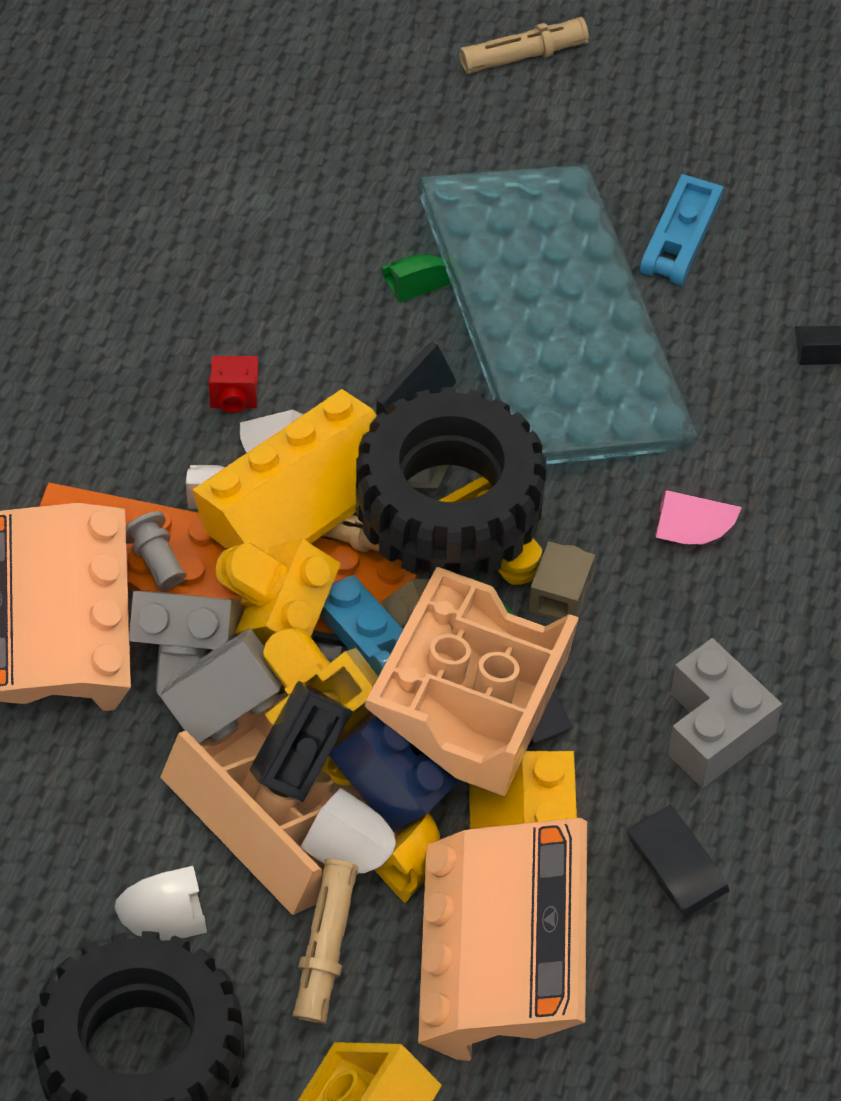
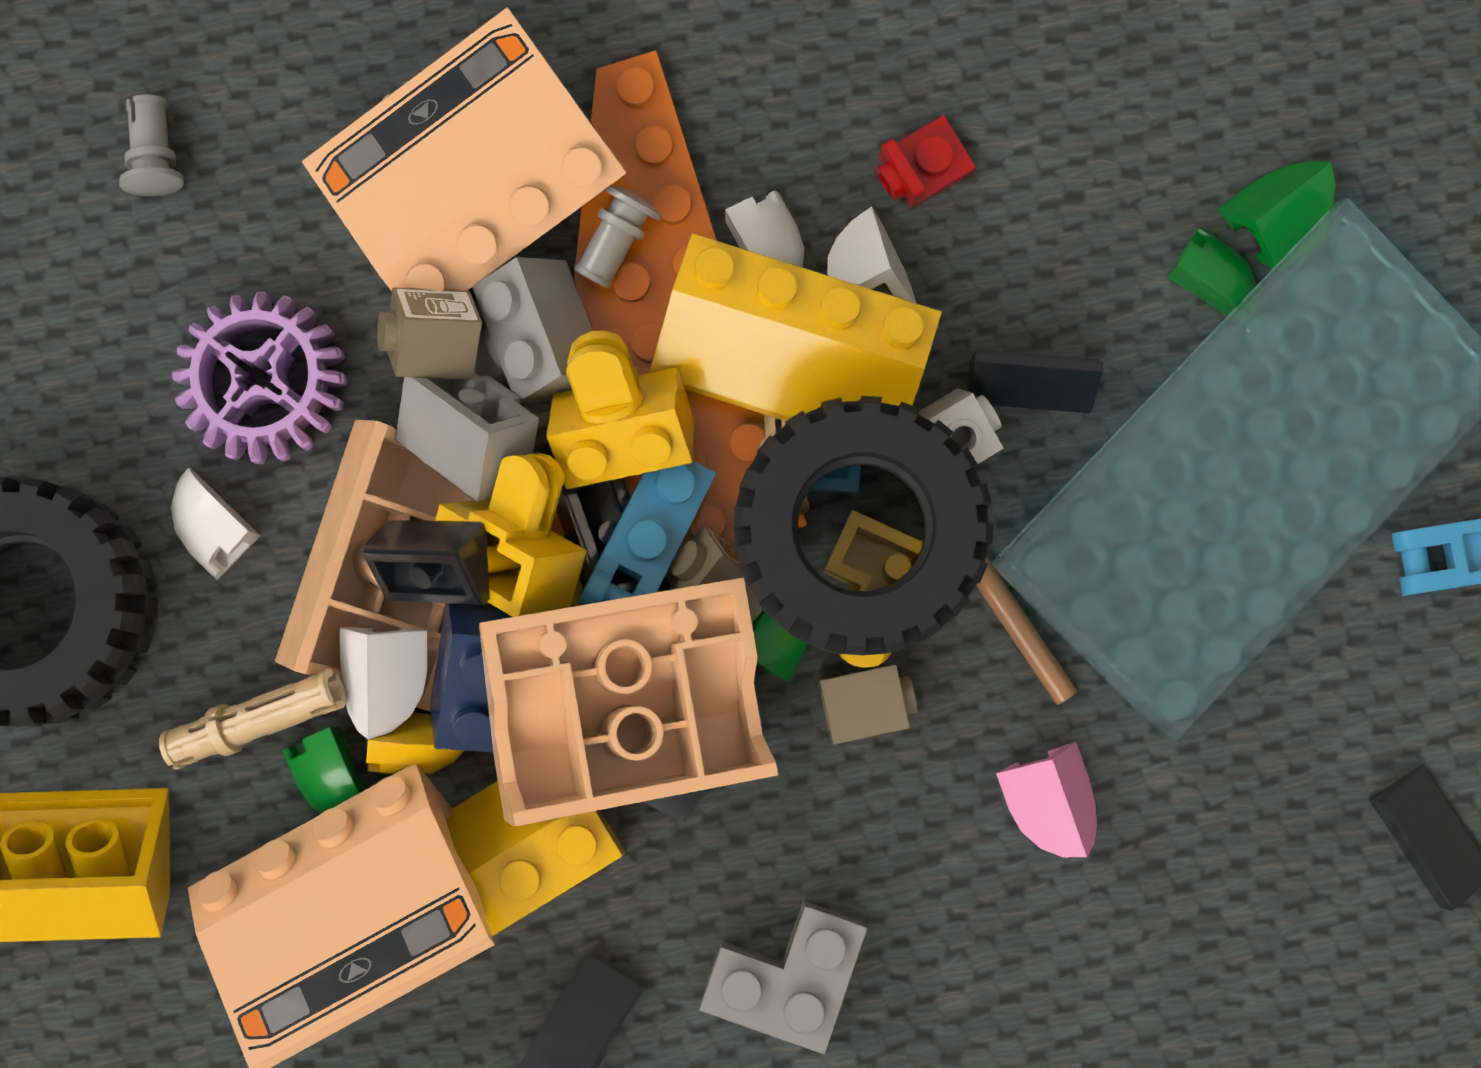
camera: 60 degrees right, 30 degrees up
(122, 797) = (216, 345): none -> lavender gear
(145, 670) = (430, 333): none -> dark tan brick
(391, 923) = (324, 769): none -> green brick
(401, 223) = (1282, 207): none -> green brick
(563, 483) = (1025, 635): none -> medium nougat piece

